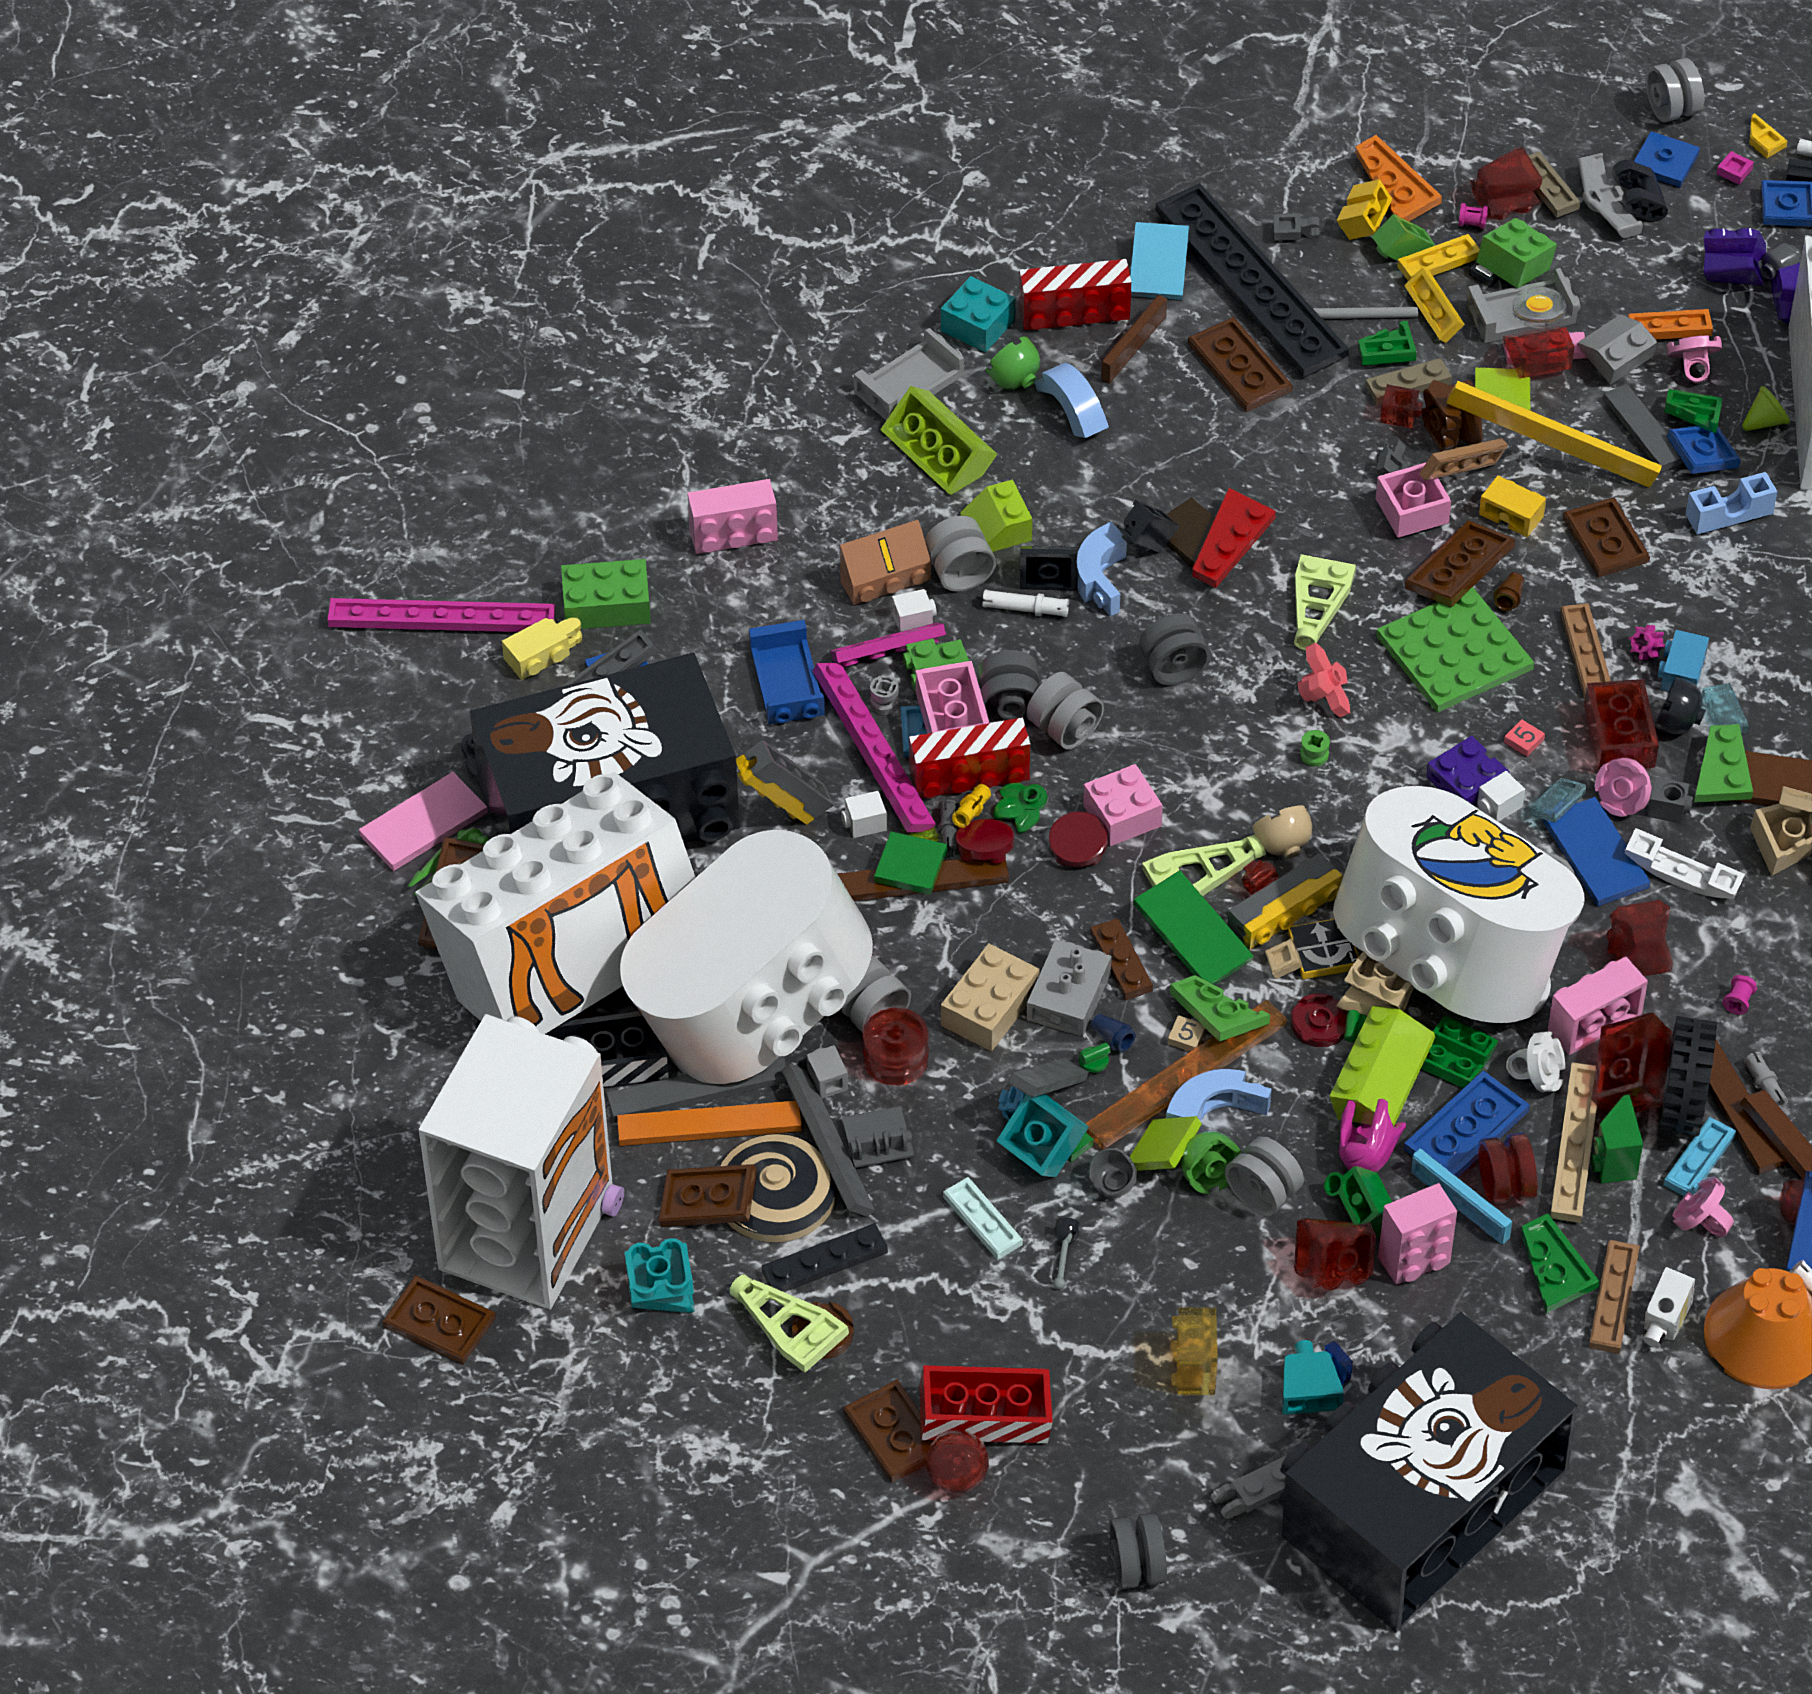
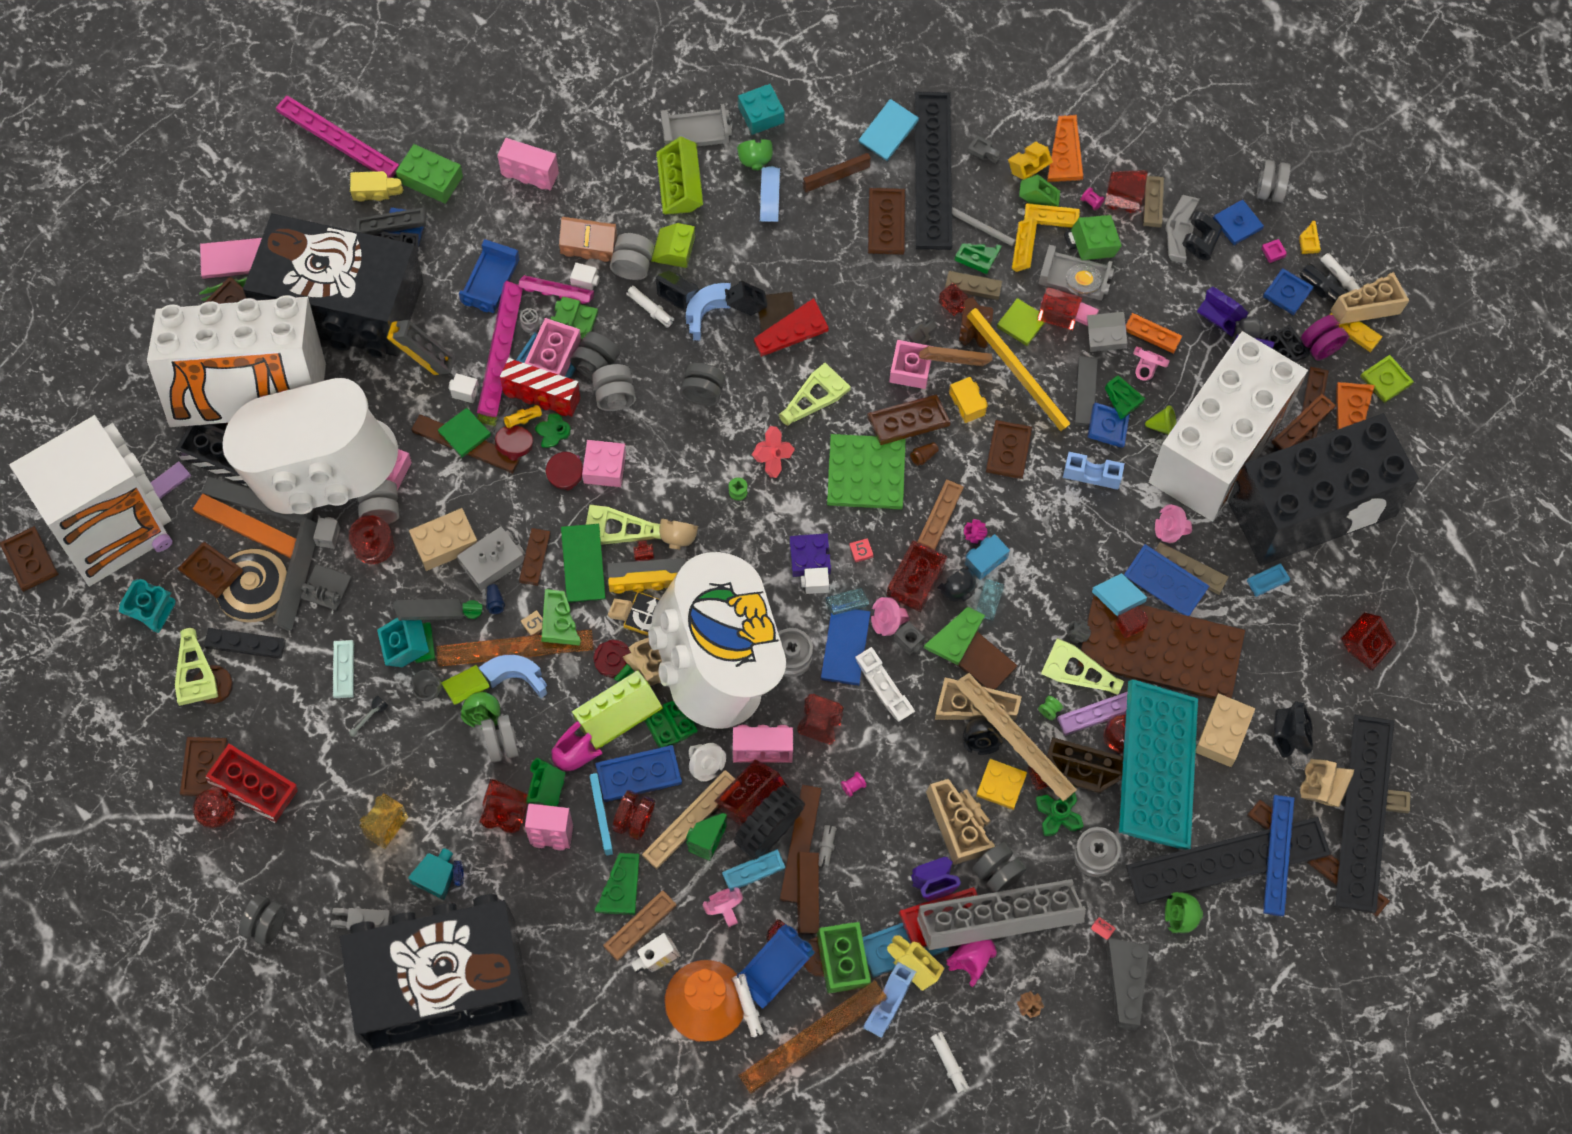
camera: 30 degrees right, 15 degrees up
(1074, 294) = (820, 127): red brick -> none

